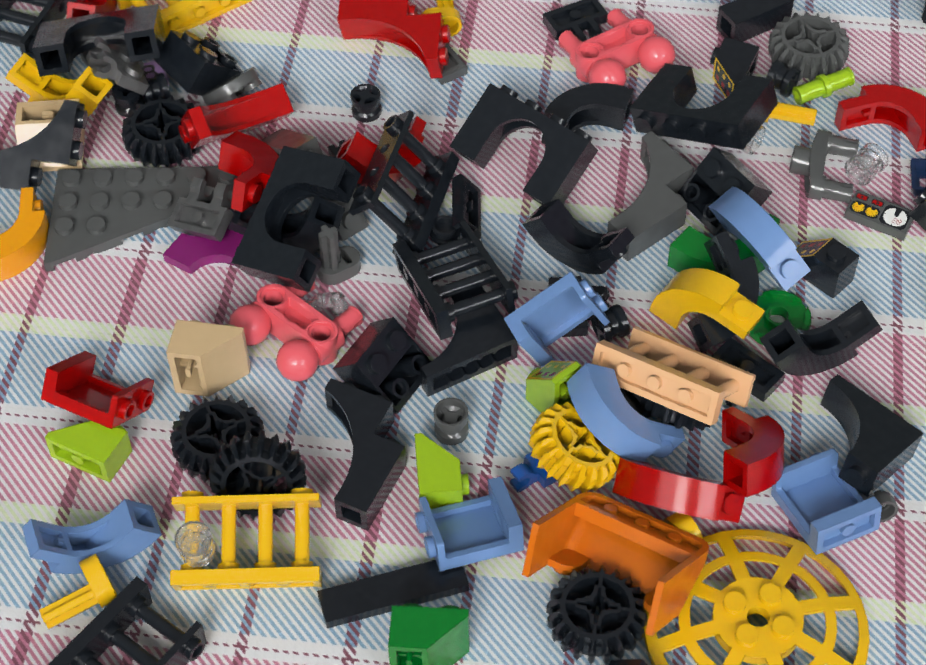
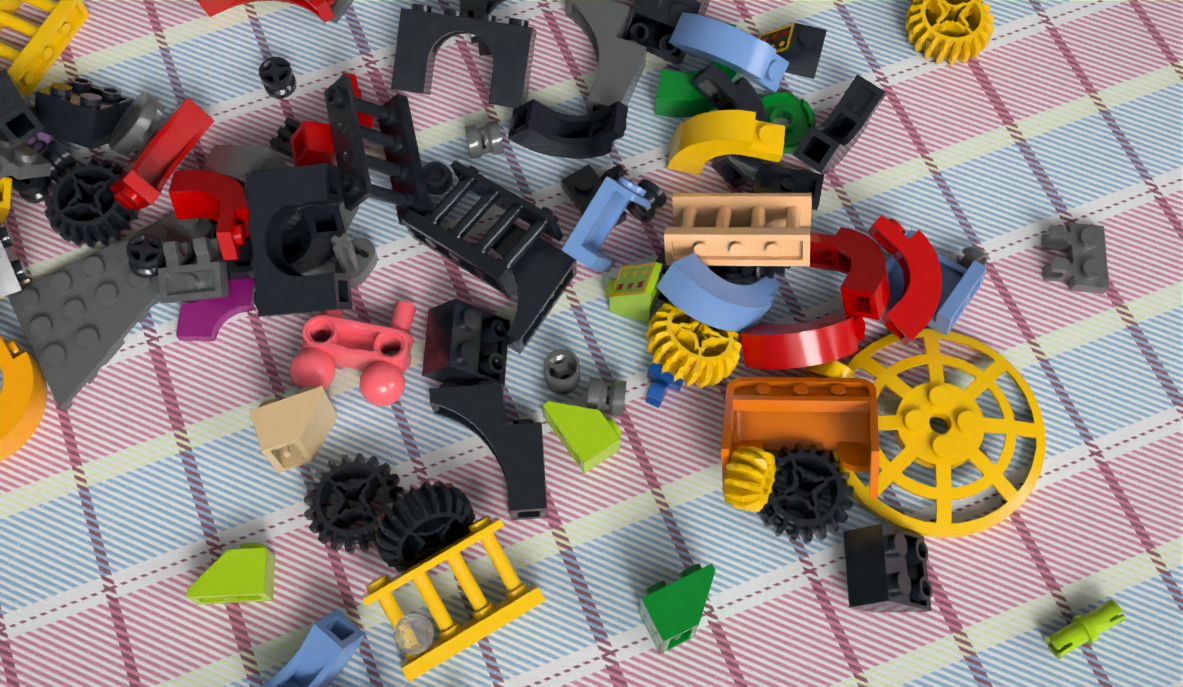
camera: 30 degrees left, 15 degrees up
(77, 390) = (206, 524): red panel -> none
(175, 182) = (139, 249): none -> black wheel
(333, 299) = (374, 302): clear arm -> none
(378, 593) = (609, 567): black tile -> none
(466, 203) = (441, 141): black tile -> none
(471, 528) = (646, 469): medium blue panel -> none
(477, 458) = (598, 396): none -> dark grey wheel
(503, 218) = (491, 137): none -> dark grey wheel
(547, 565) = (749, 478): none -> yellow gear
(804, 500) = (920, 274): none -> red arch
(876, 436) = (933, 197): black arch -> none

